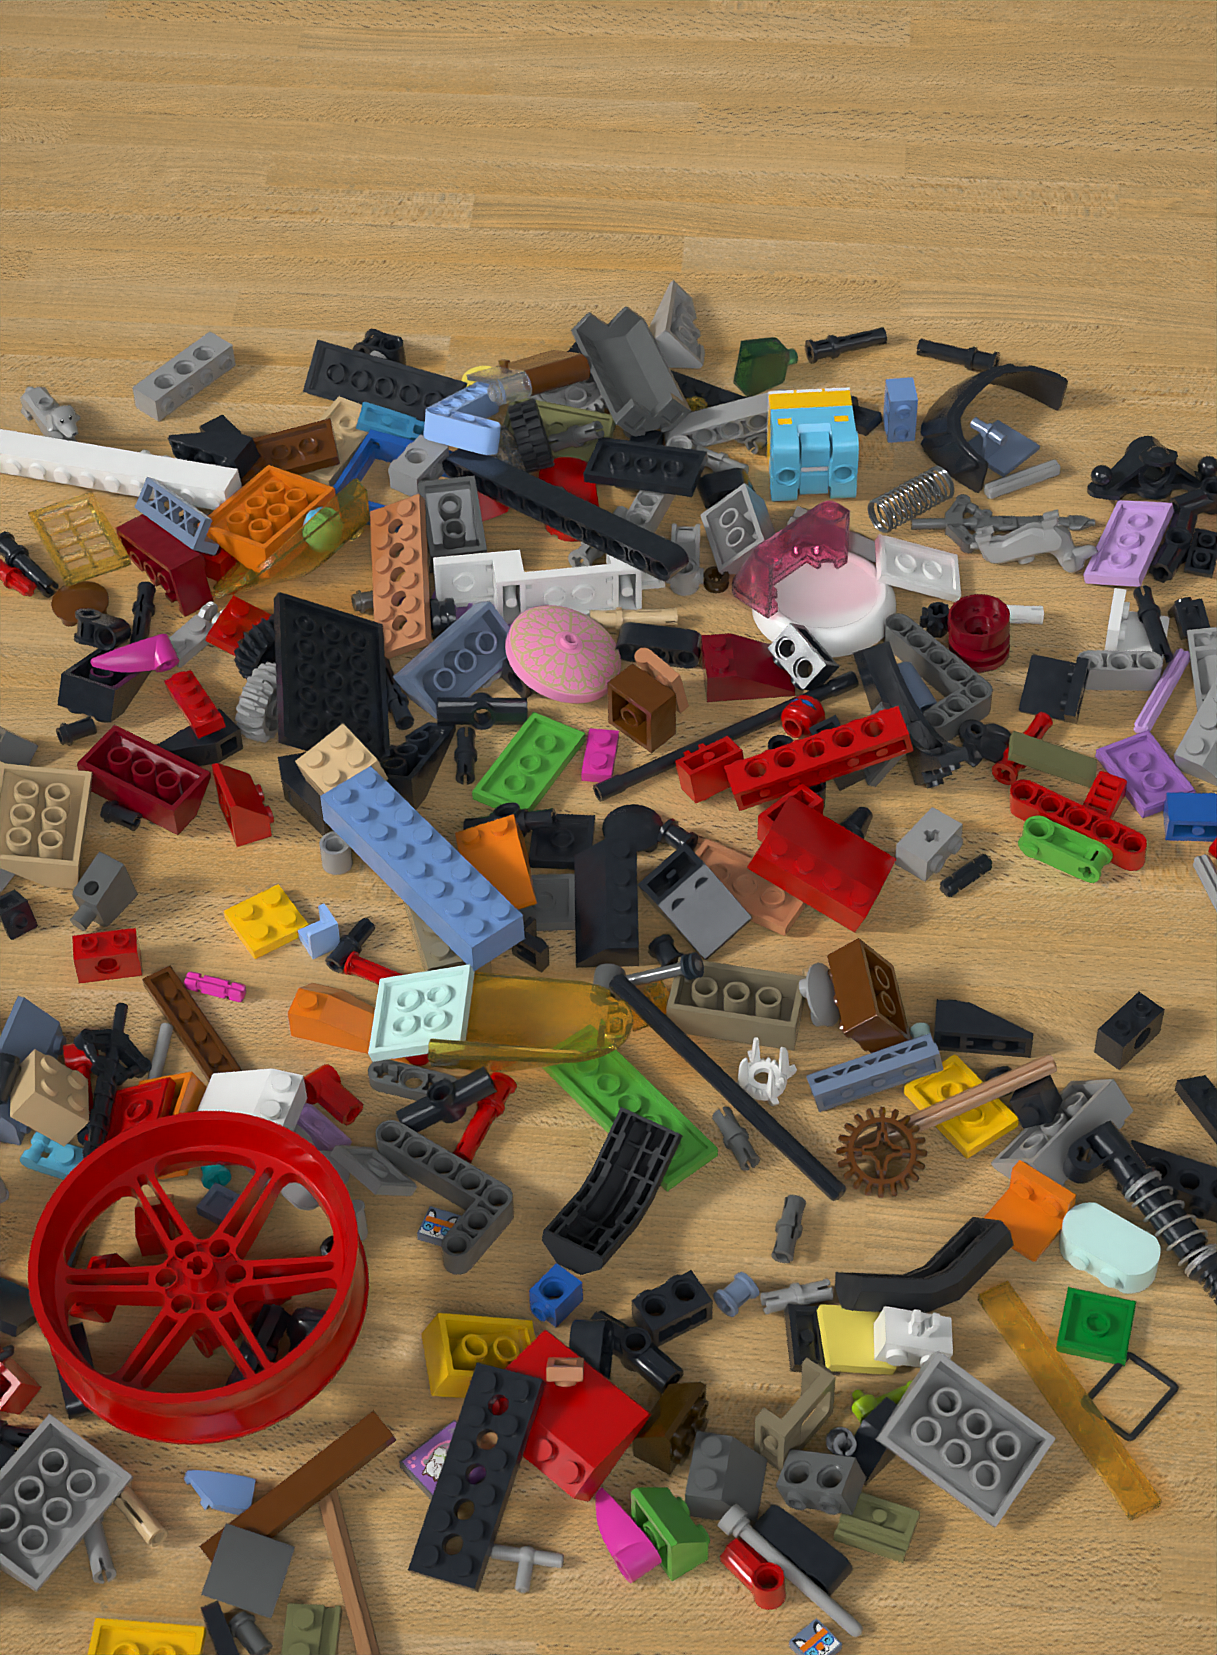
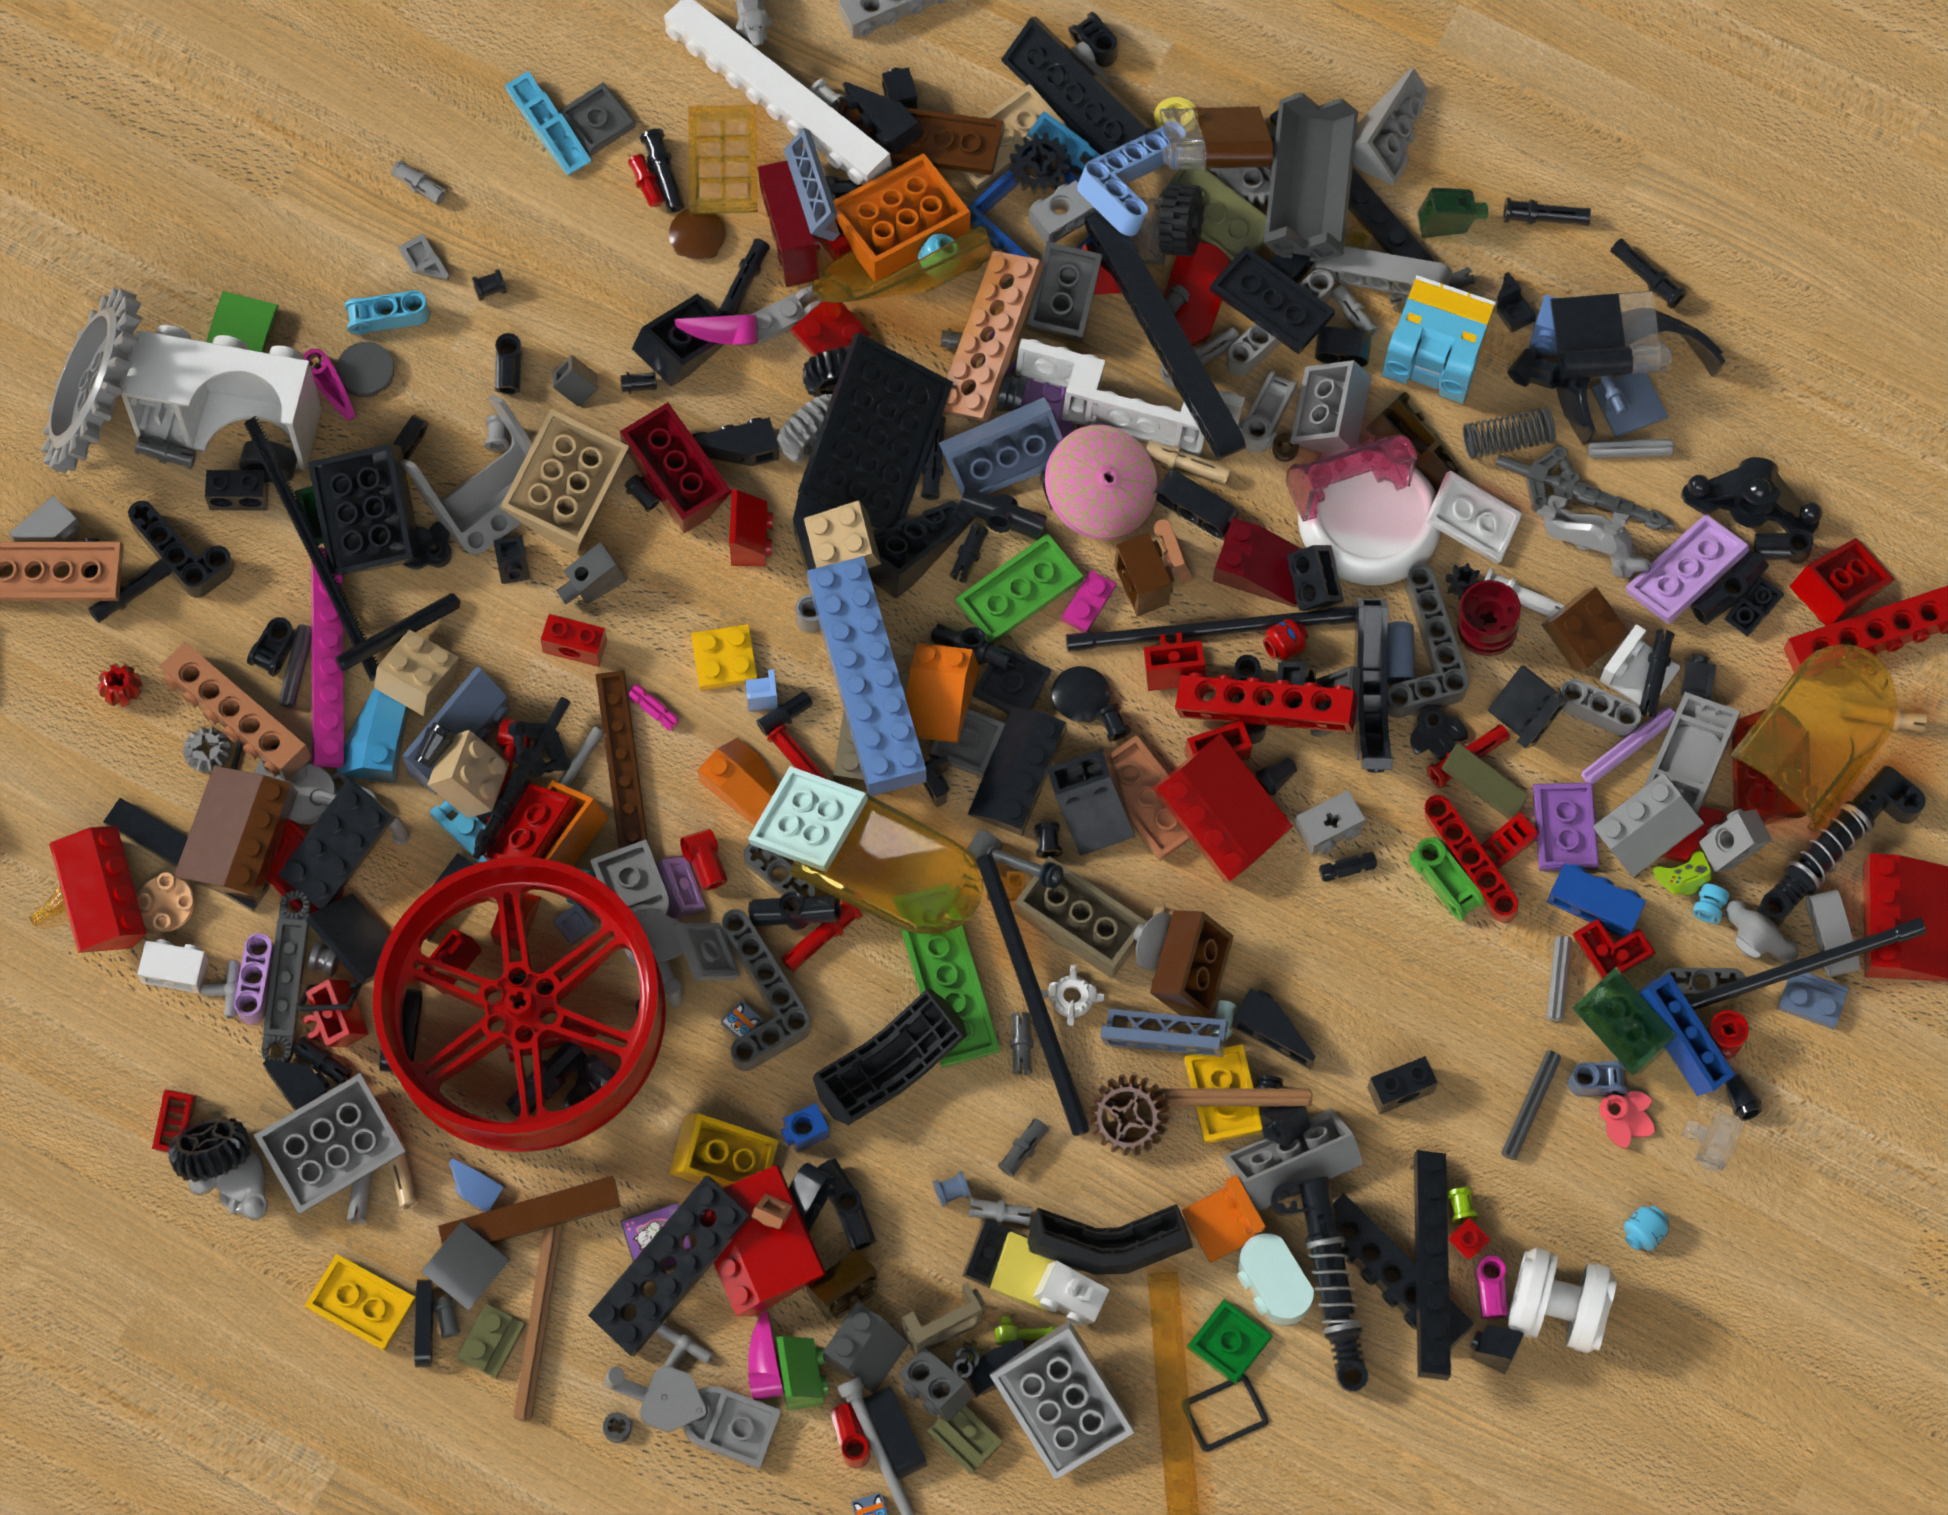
camera: 20 degrees right, 20 degrees up
(100, 629) = (700, 281): black piece -> none
(194, 703) = (750, 402): red plate -> none
(259, 1093) = (628, 852): white slope -> none
(380, 437) = (1024, 165): none -> black gear
(576, 436) = (1225, 234): dark grey pin -> none
(620, 1614) = (732, 1425): none -> light grey plate
(676, 1315) = (894, 1188): black brick -> none
(903, 448) = (1533, 369): none -> black piece
(958, 388) = (1608, 335): none -> black door
(1070, 612) = (1585, 629): none -> reddish brown brick

